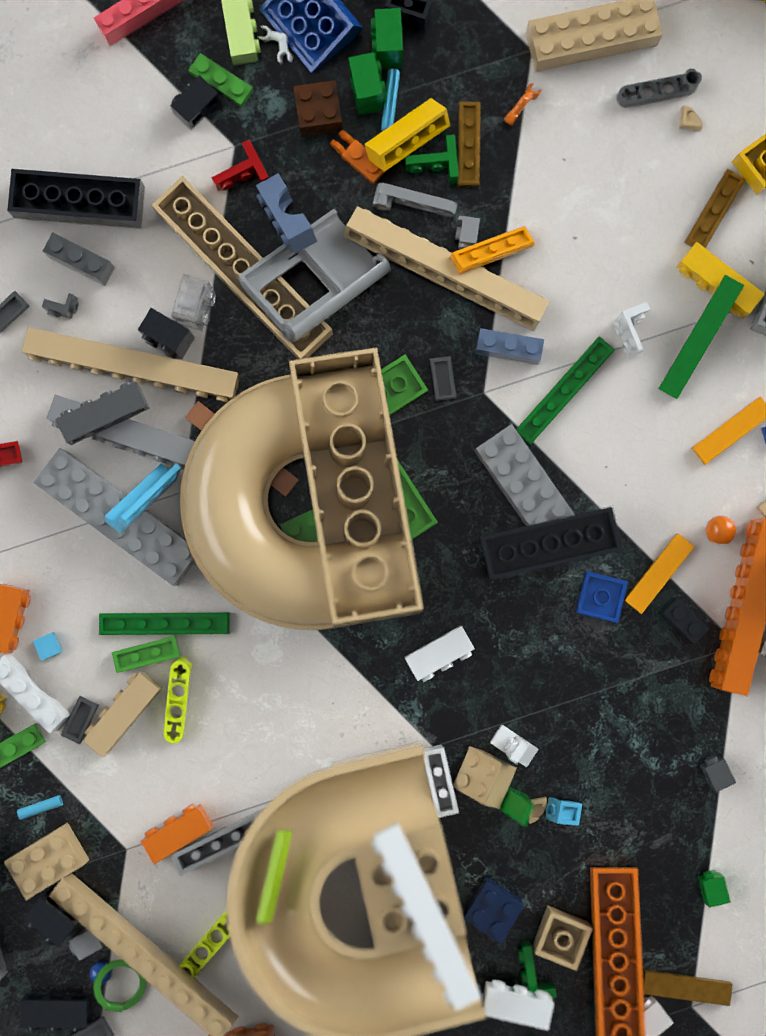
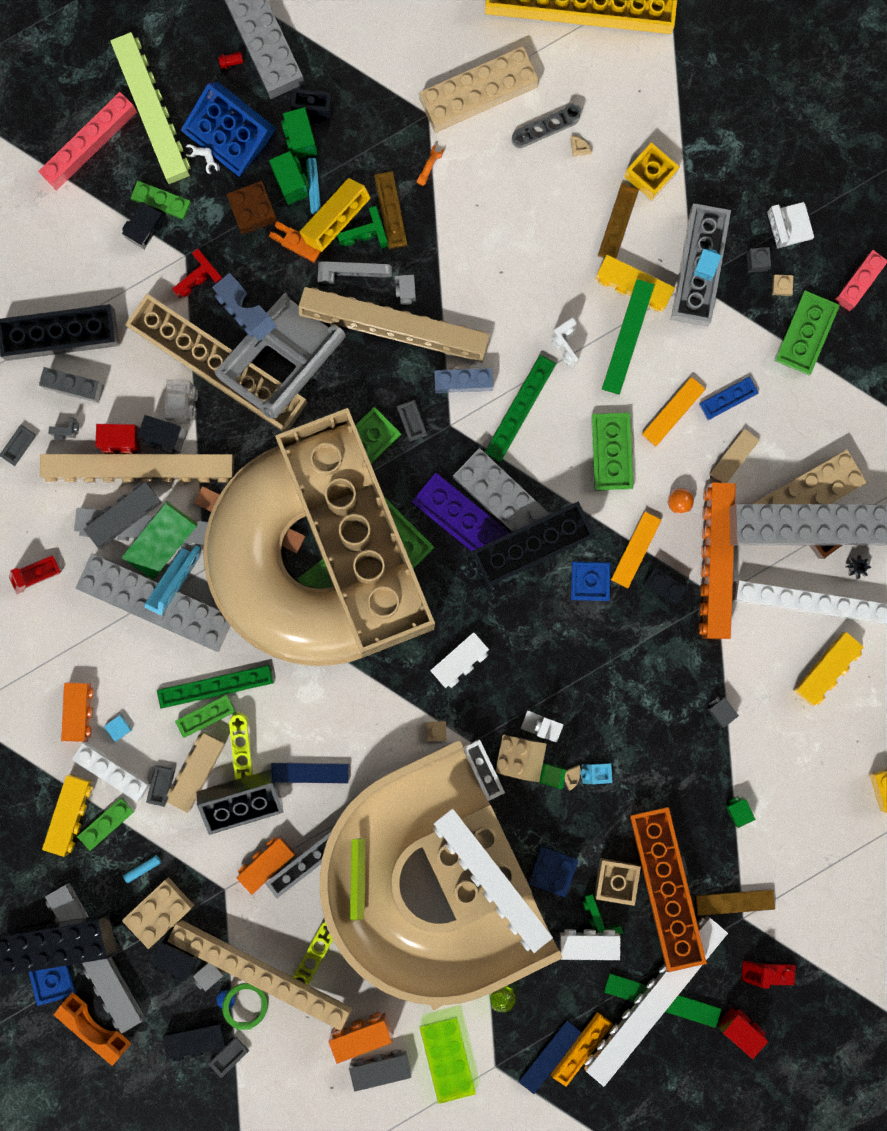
camera: 10 degrees left, 0 degrees up
(116, 328) = (118, 438): none -> red brick
(137, 449) = (159, 540): none -> green tile
(162, 758) = (239, 802): none -> black brick
(247, 741) = (310, 772): none -> dark blue tile
(396, 725) = (436, 731): none -> tan plate
(471, 492) = (457, 514): none -> dark purple plate
(492, 249) = (430, 299): light orange tile -> none
(656, 459) = (612, 451): none -> bright green plate

